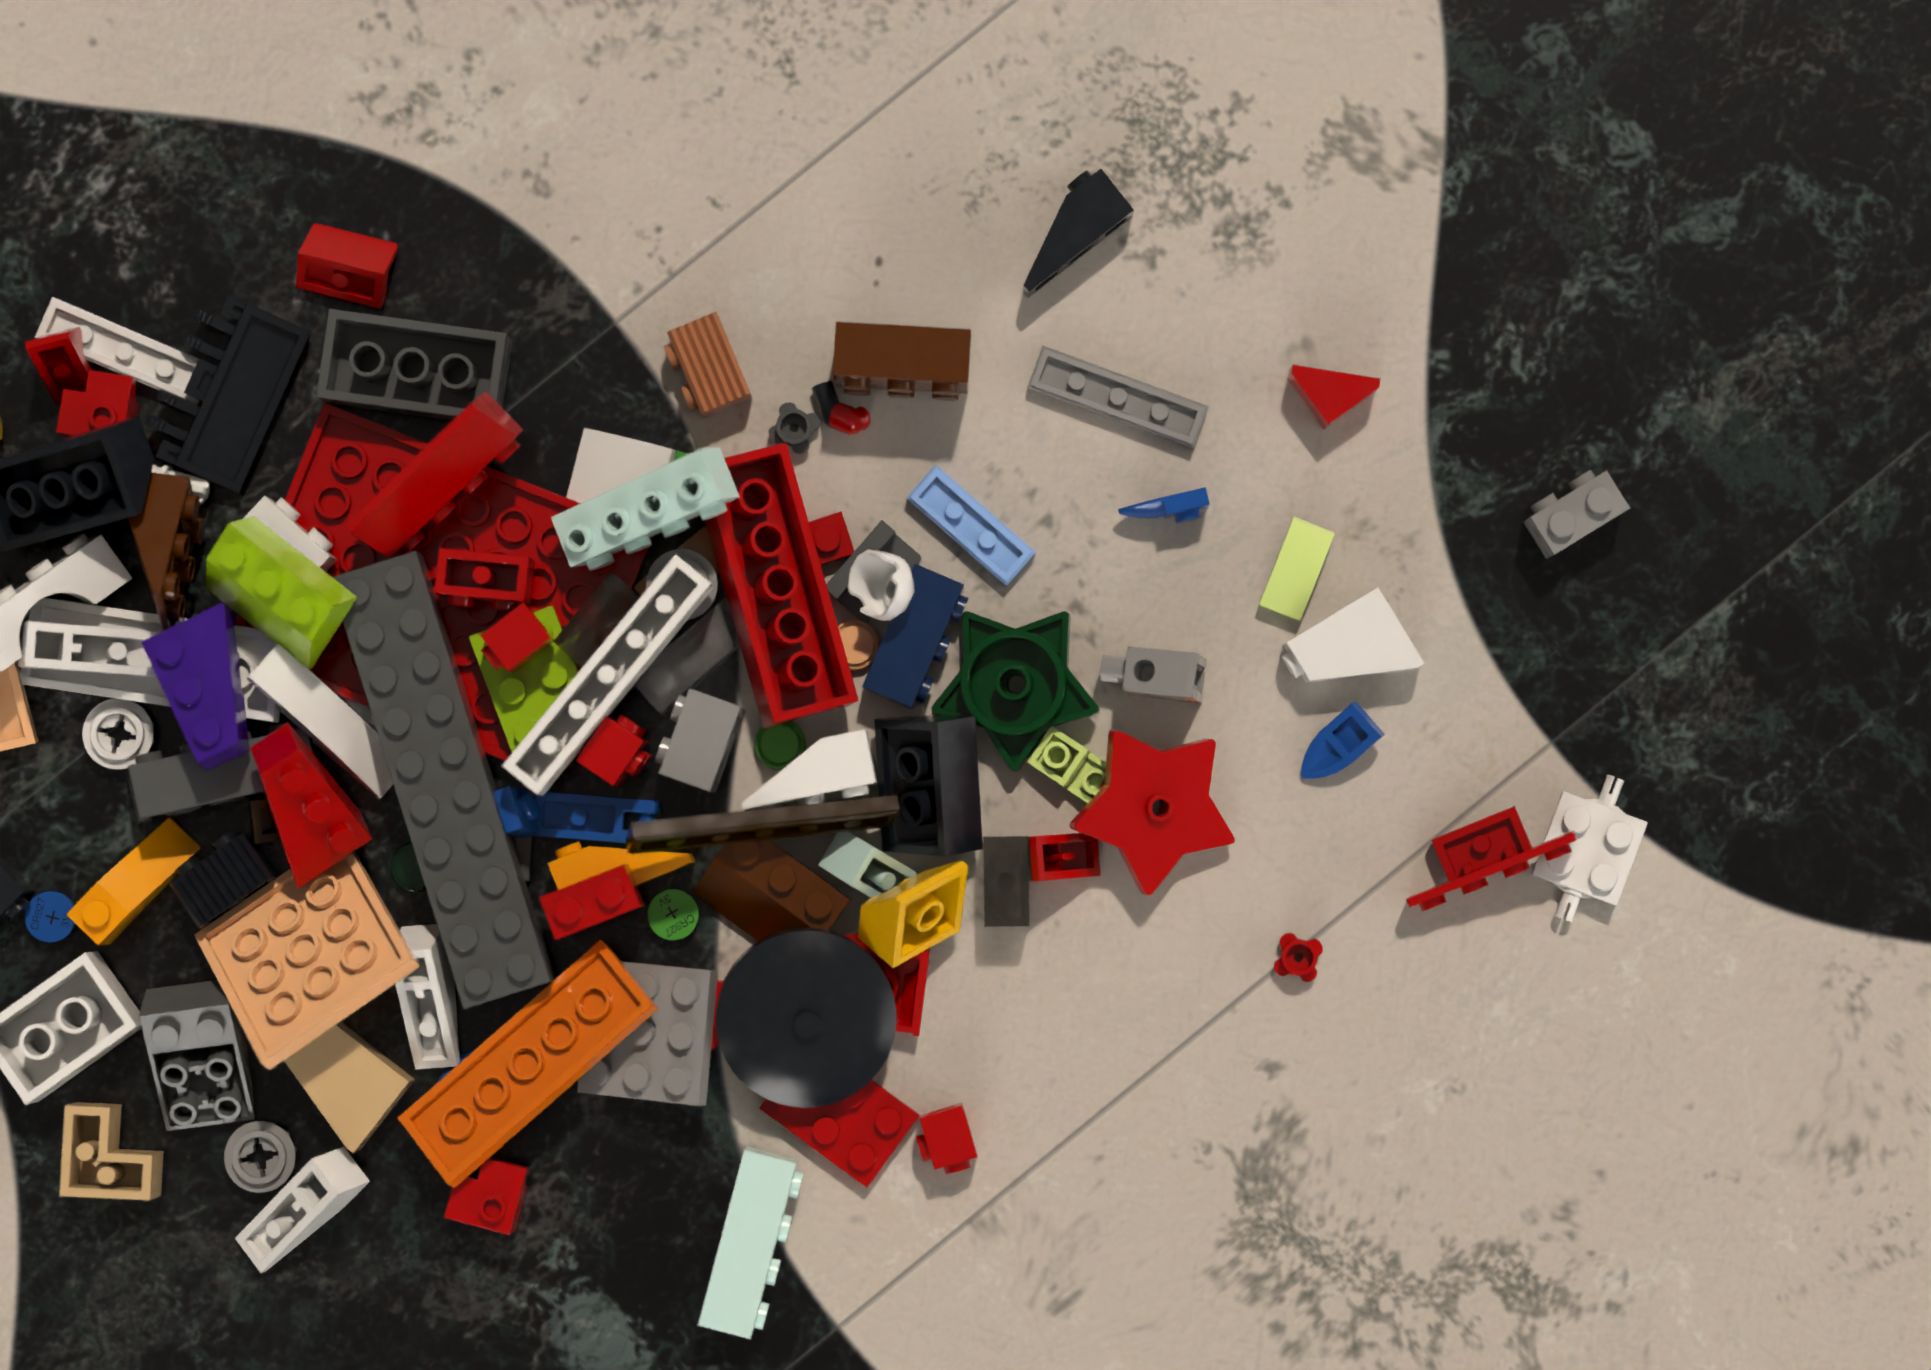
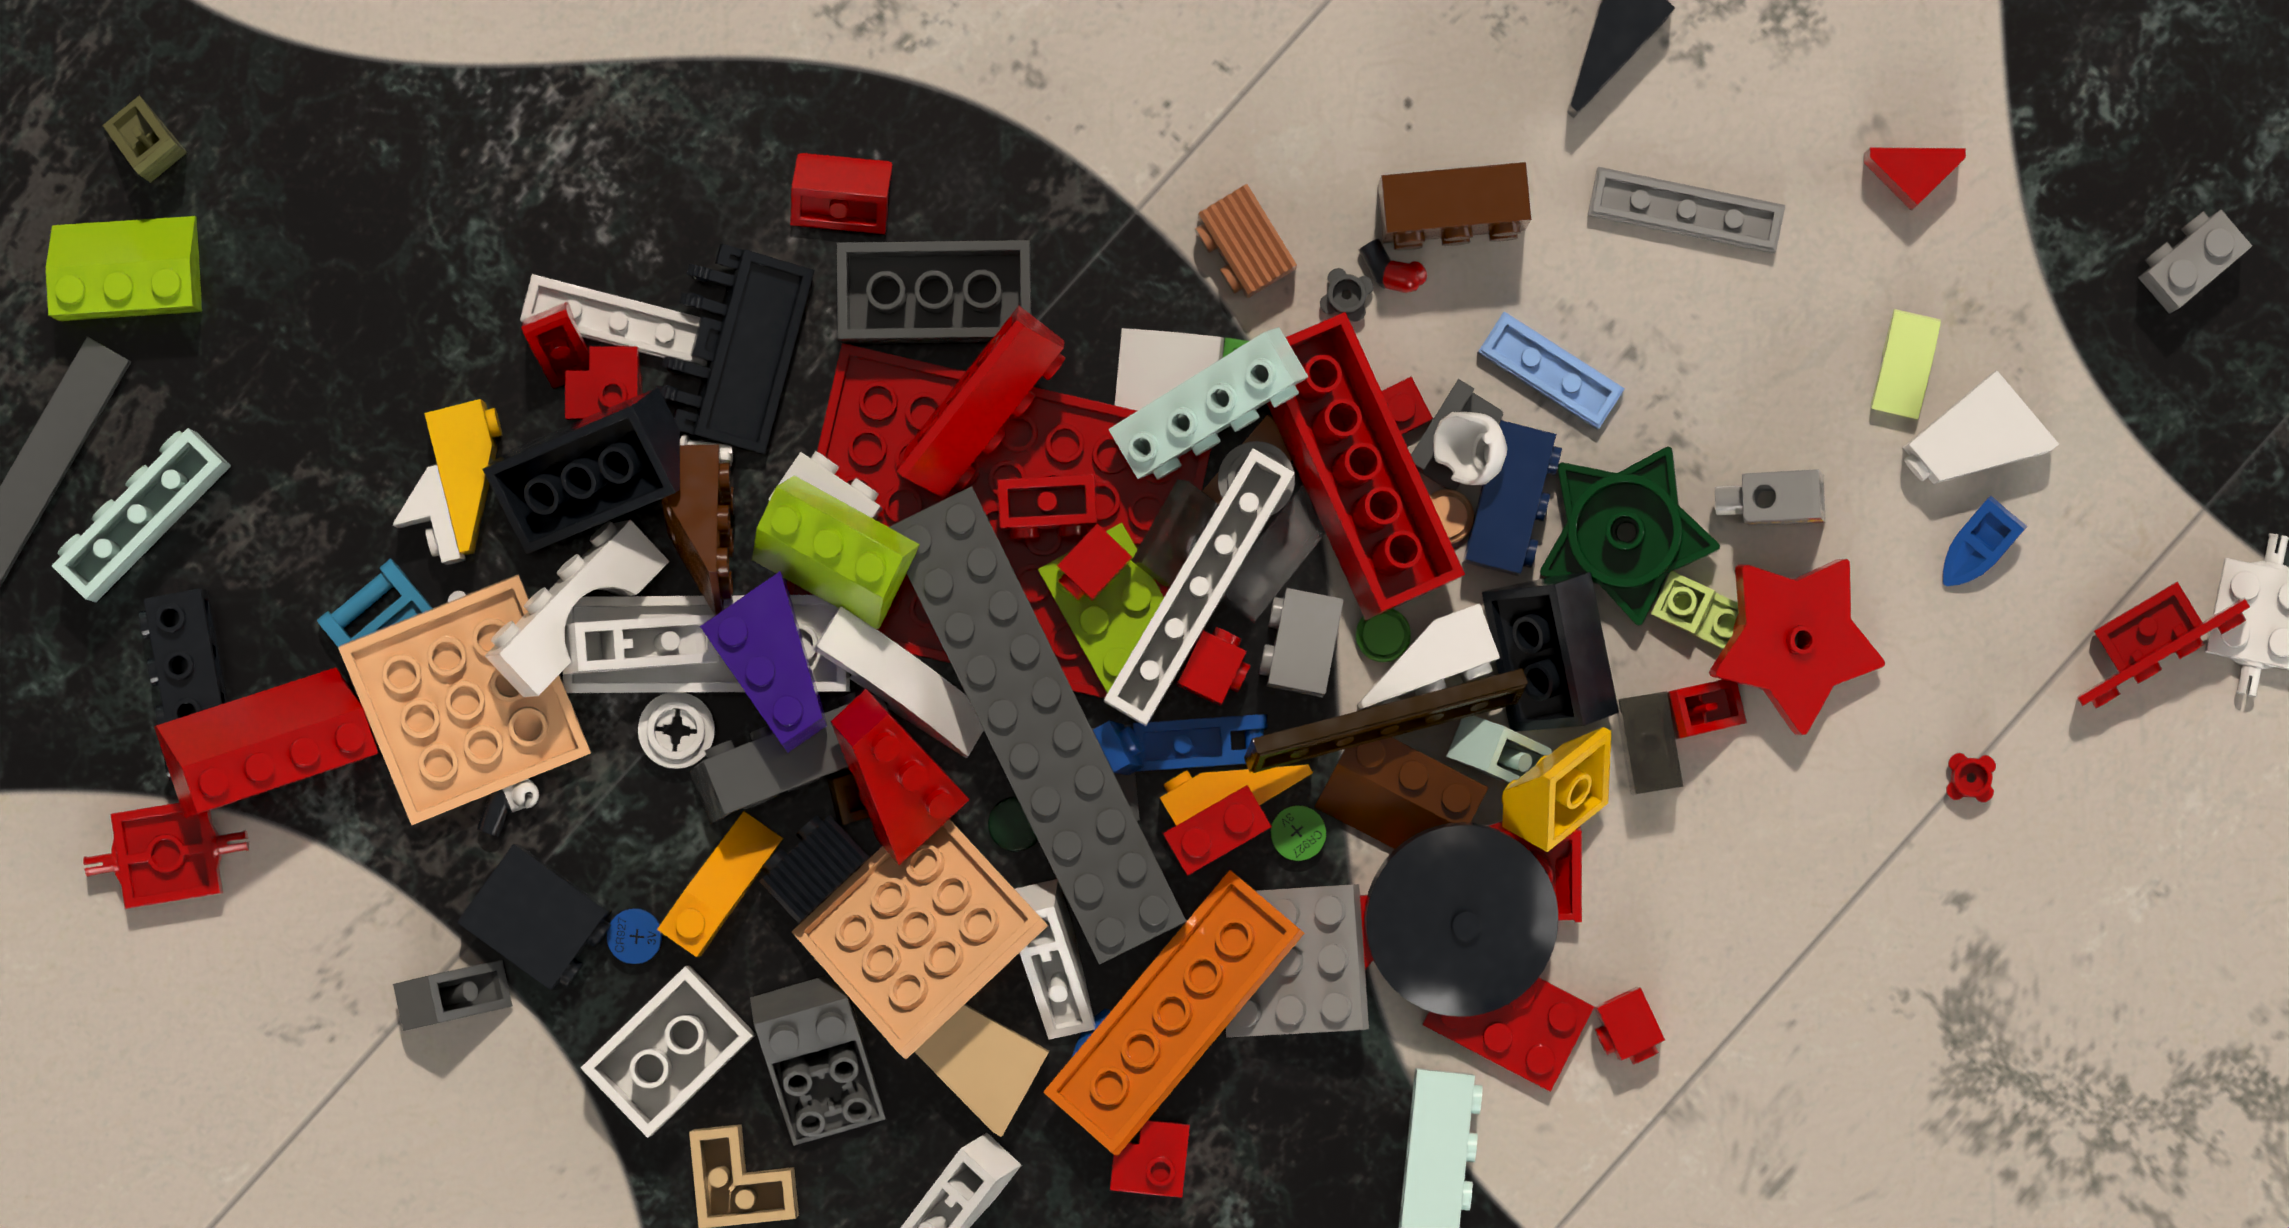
camera: 10 degrees left, 0 degrees up
(250, 1175) = (889, 1178): light grey gear -> none
(1182, 506) = (1774, 316): blue plate -> none

